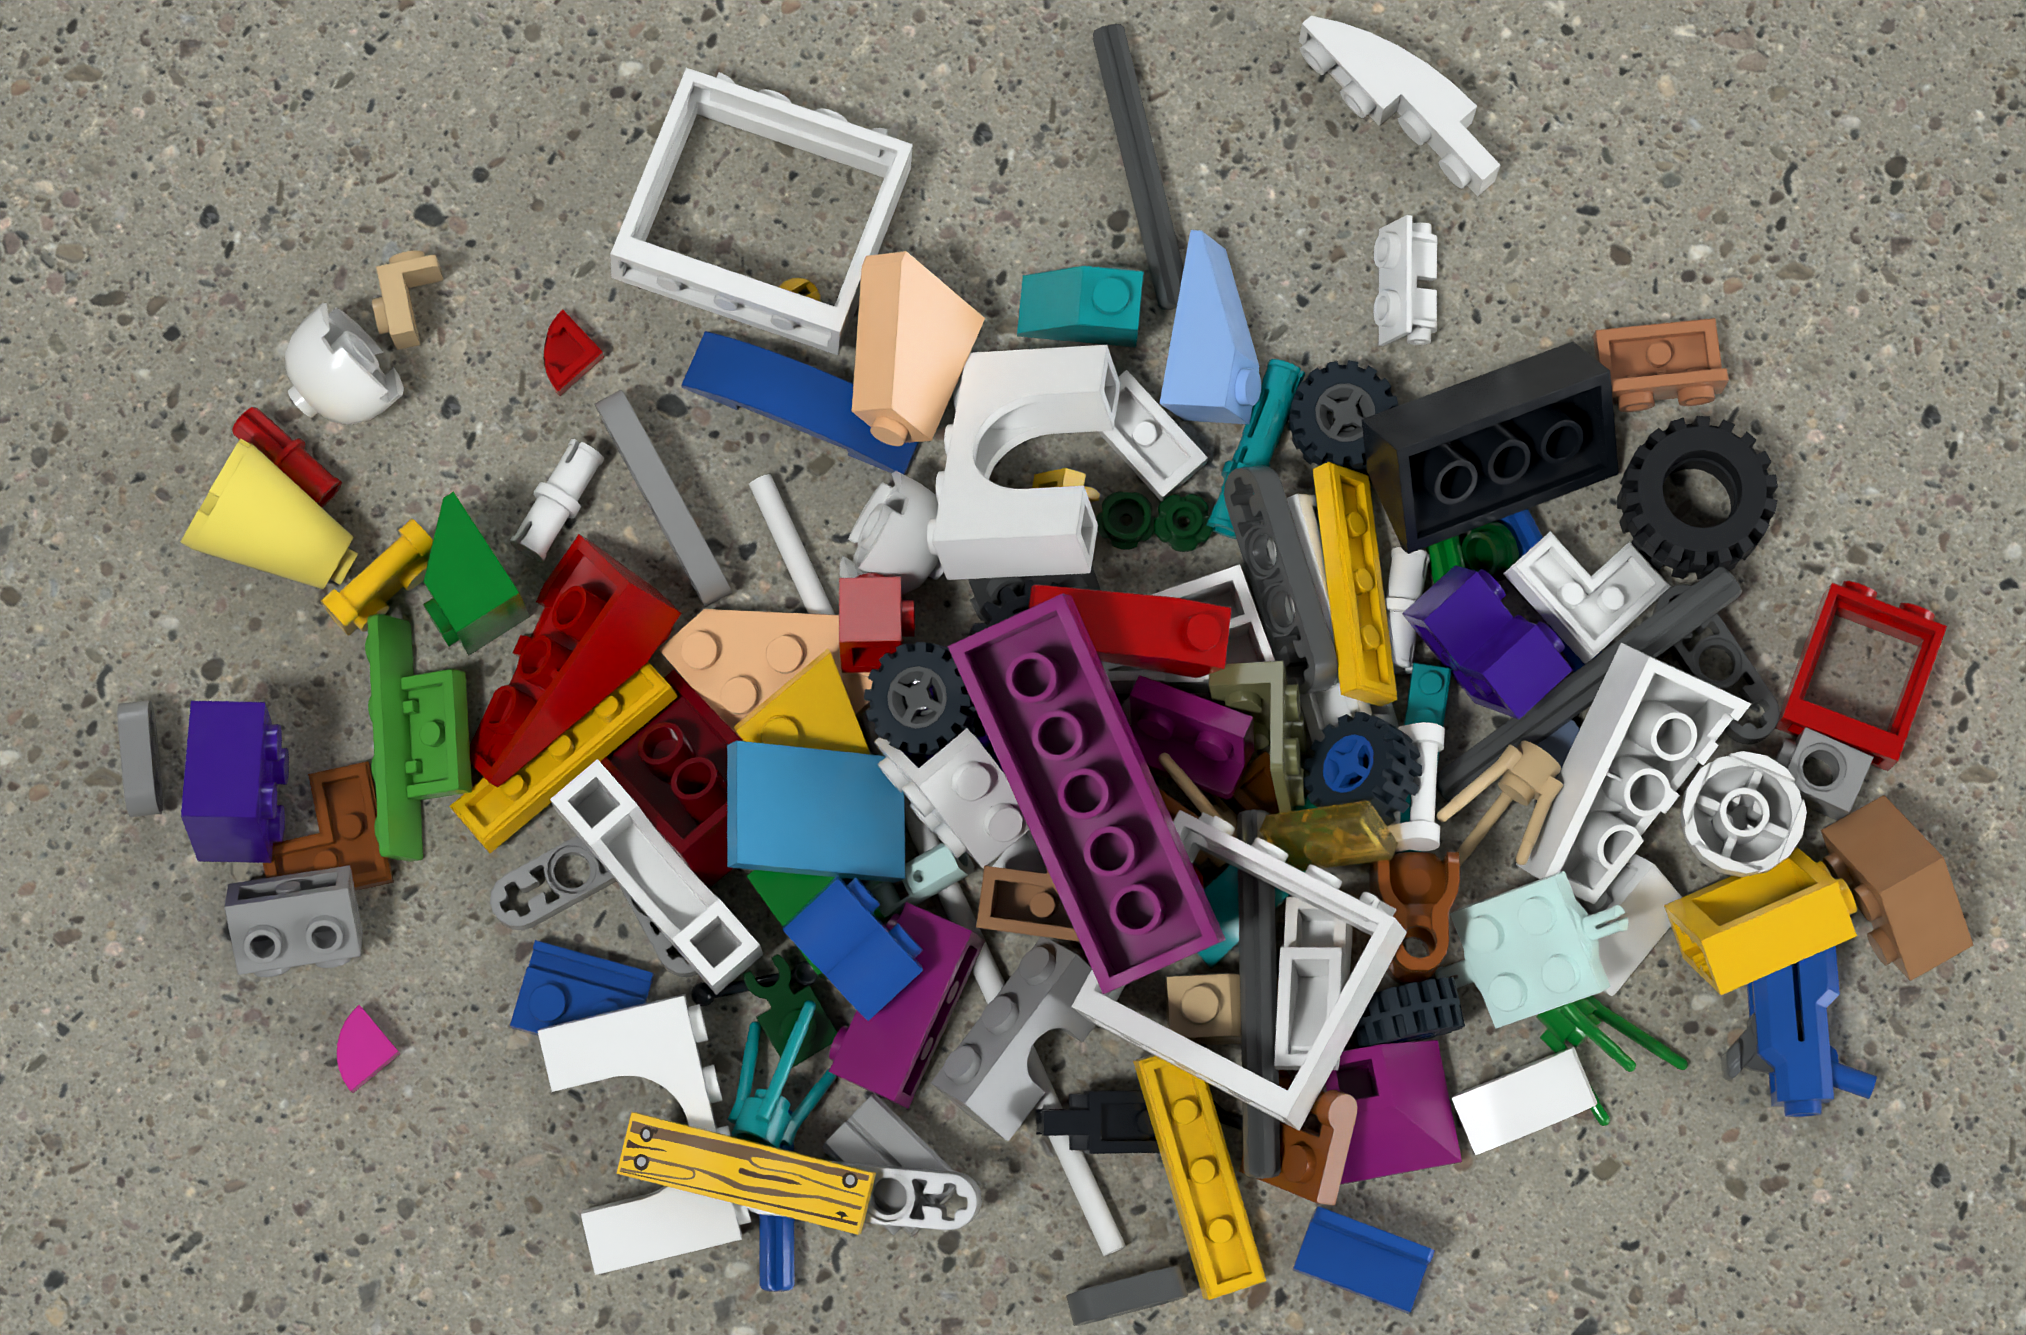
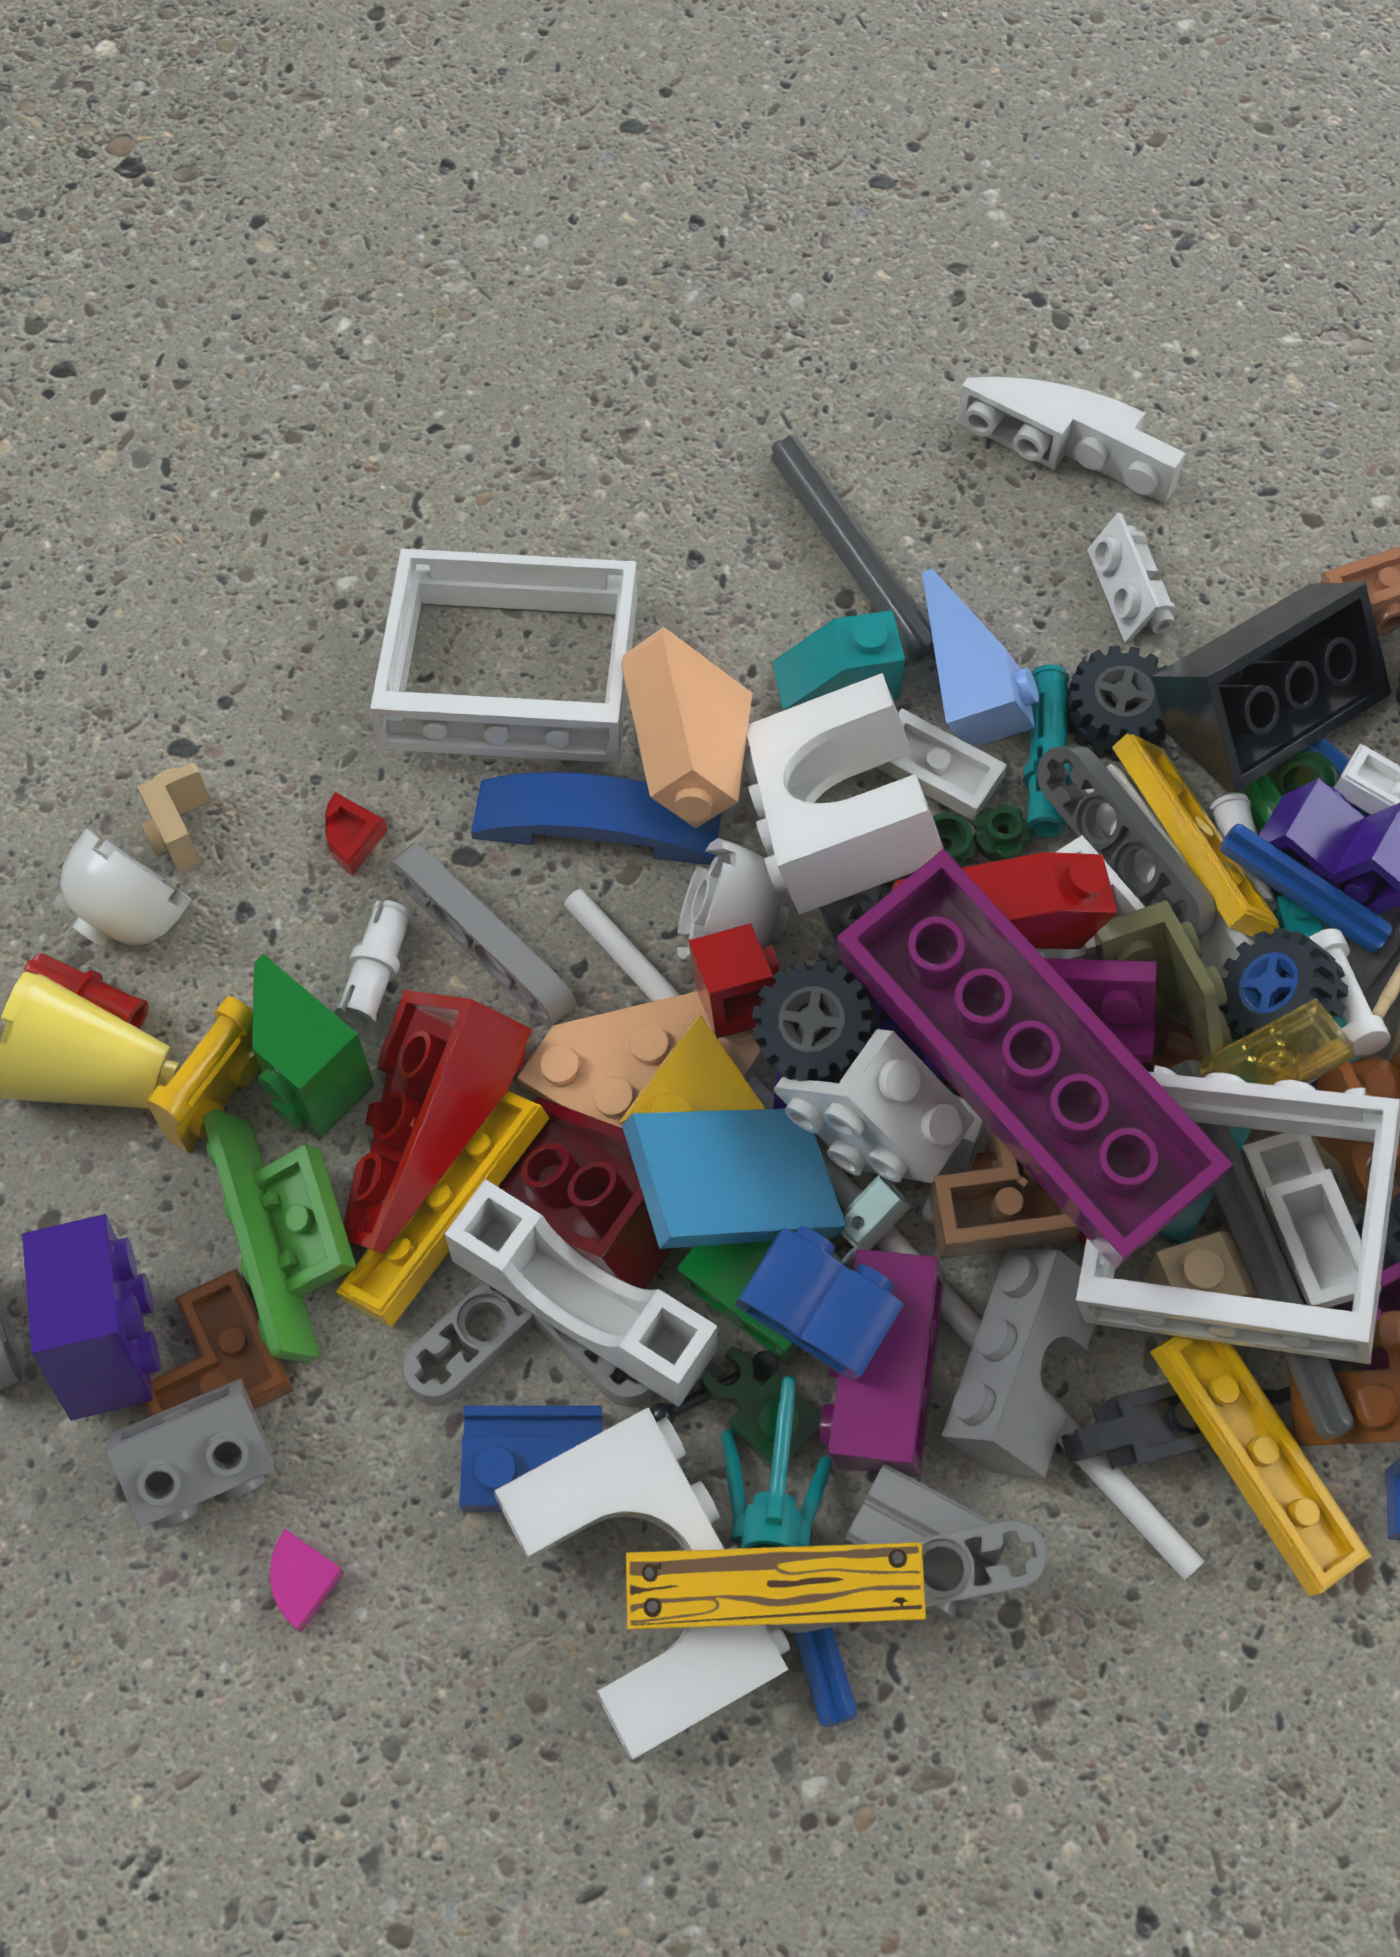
camera: 15 degrees left, 15 degrees down
(1127, 1295) = (1230, 1614): dark grey beam -> none
(1433, 669) = (1305, 888): none -> blue axle

